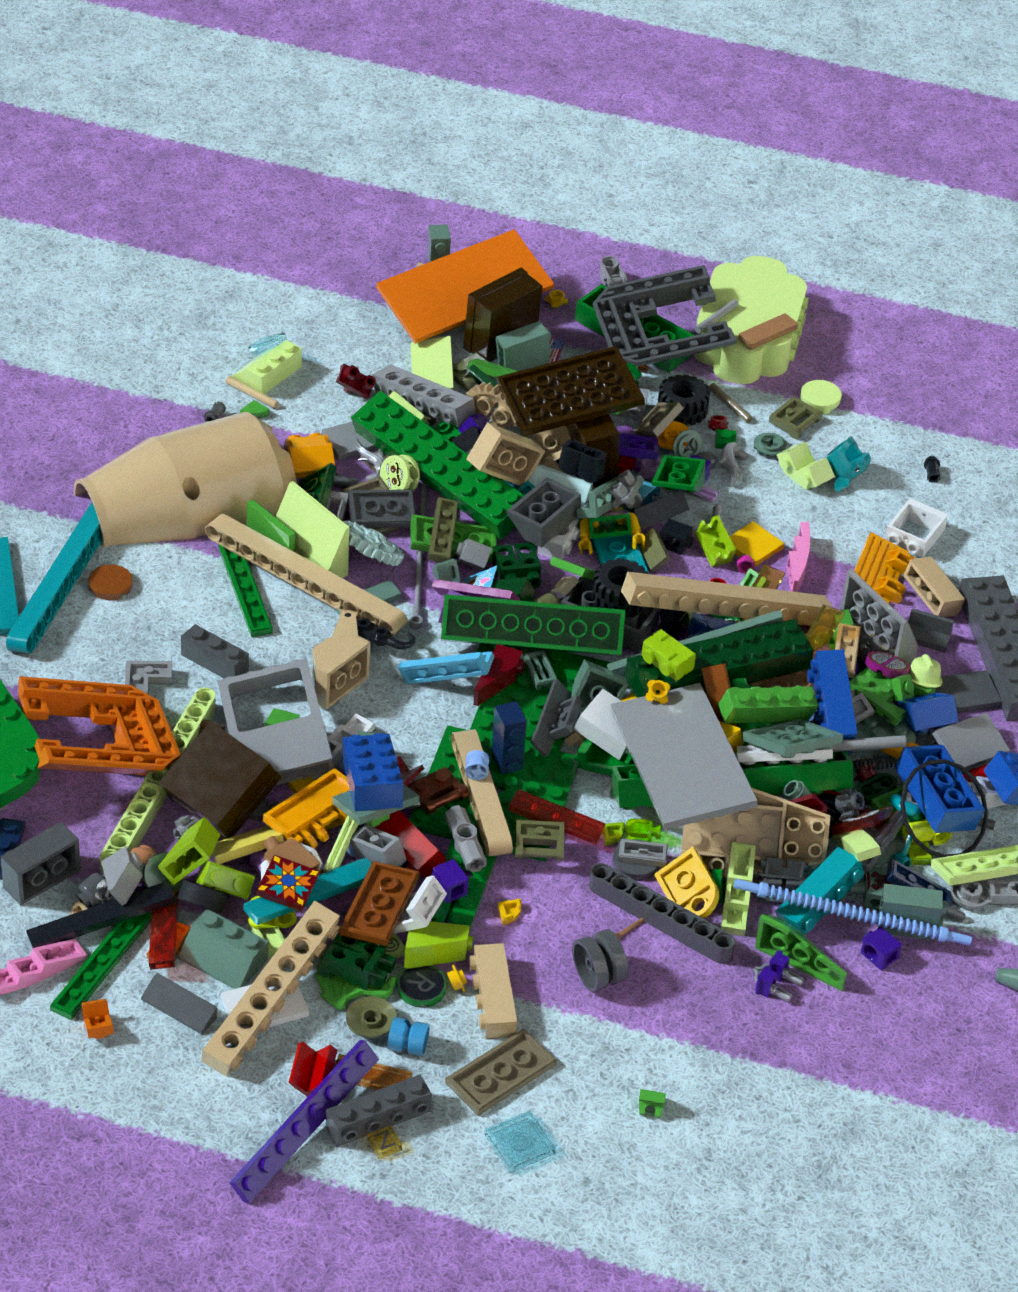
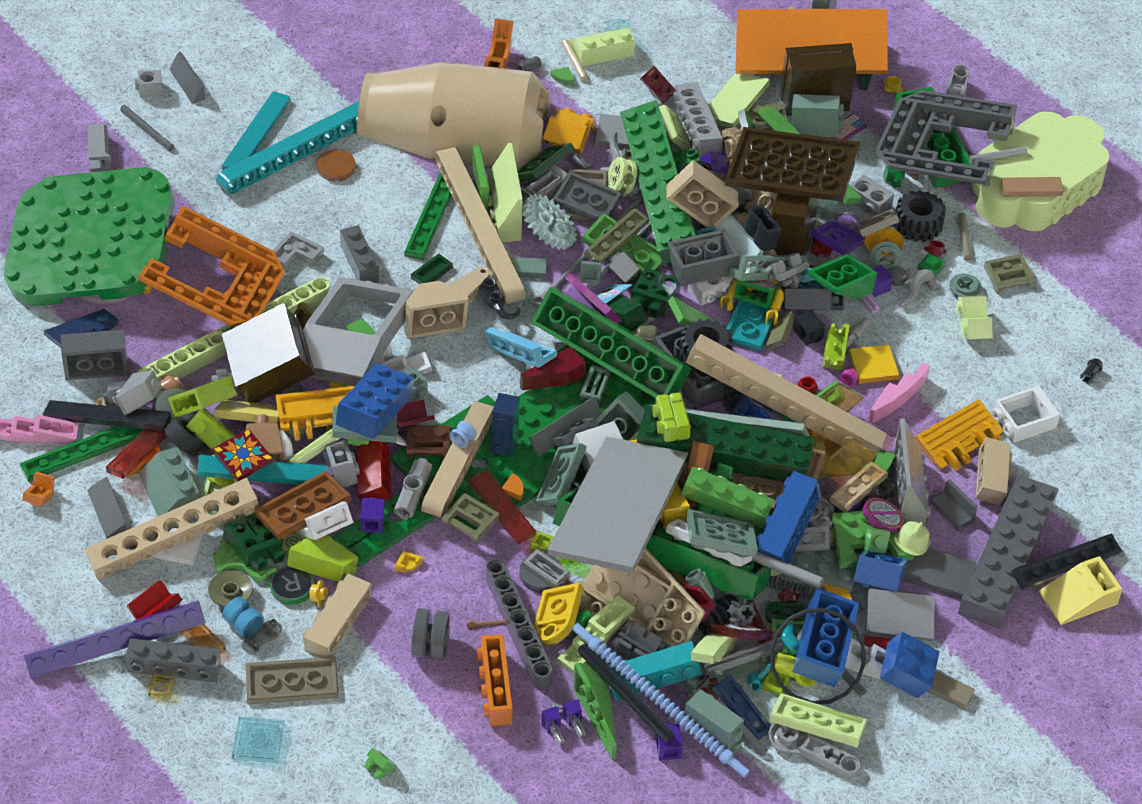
camera: 35 degrees right, 5 degrees up
(175, 403) = (501, 44): none -> orange arch
(291, 638) = (432, 270): none -> dark green tile
(438, 1041) = (269, 631): none -> clear smoke piece
(552, 793) = (514, 487): none -> orange tile
(564, 586) = (669, 326): dark tan tile -> none
(588, 761) = (560, 474): none -> sand green tile
(658, 685) = (640, 439): yellow plate -> none
(691, 972) = (496, 680): none -> orange brick
(819, 921) = (626, 693): none -> black axle
(821, 395) = (1049, 264): yellowish green tile -> none
(847, 463) = (1013, 331): teal piece -> none

